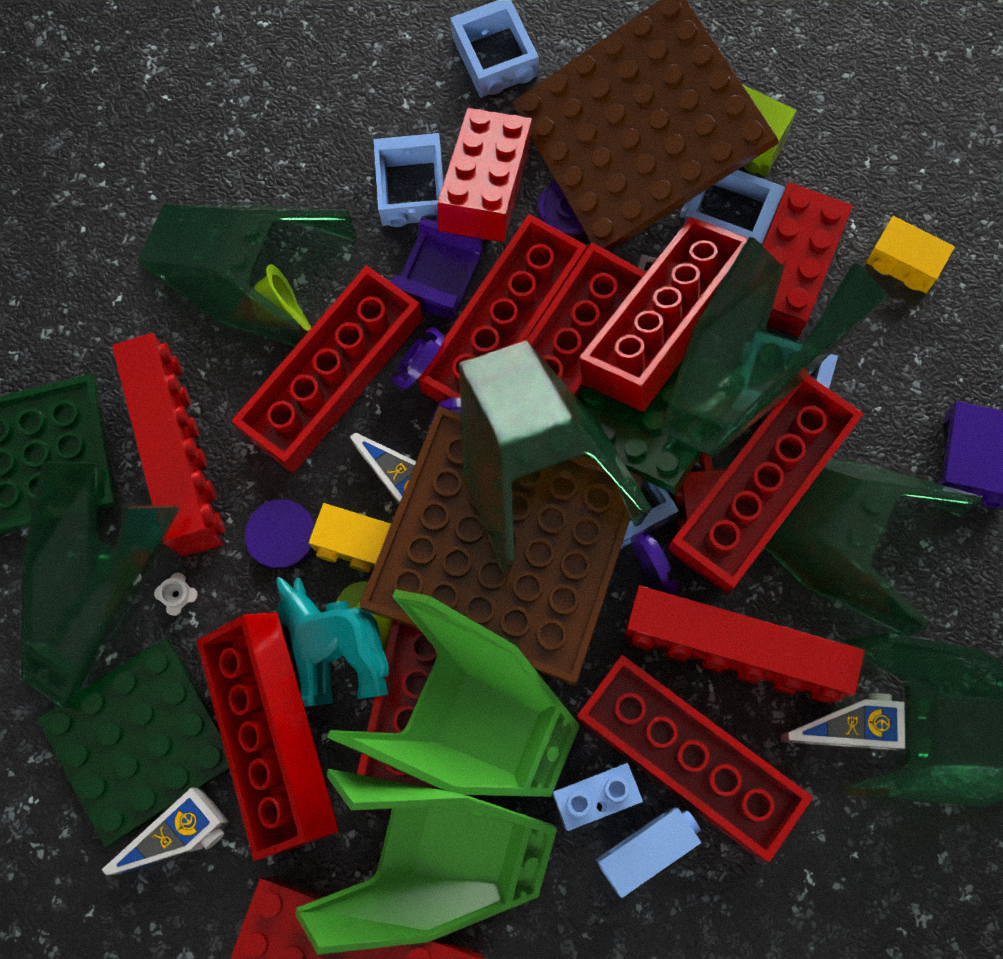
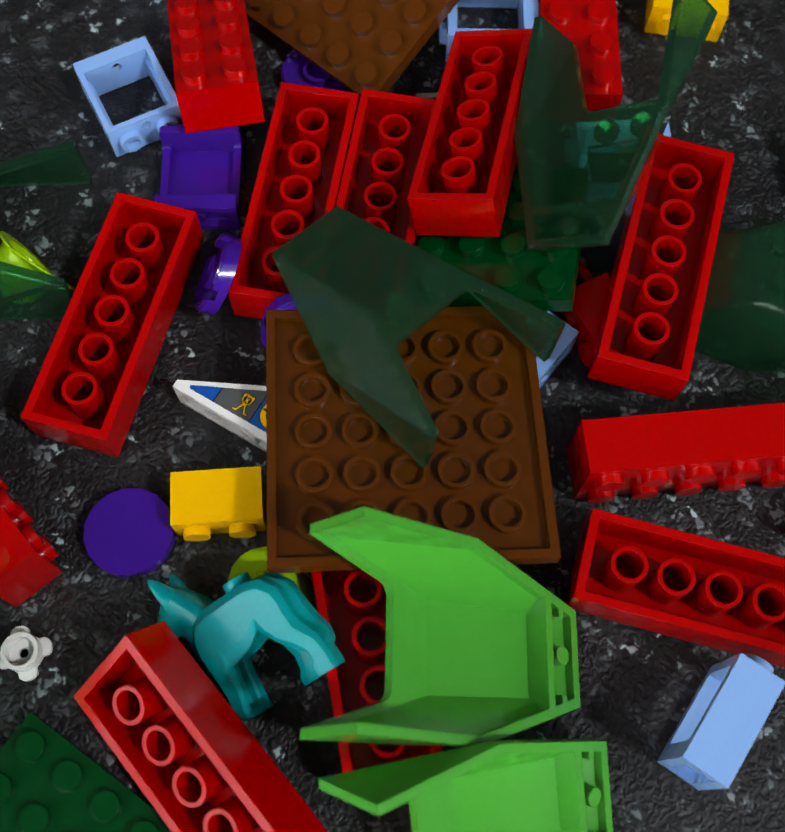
camera: 30 degrees left, 5 degrees down
(611, 789) = (631, 687): light blue window -> none
(653, 563) = (576, 394): dark purple tile -> none

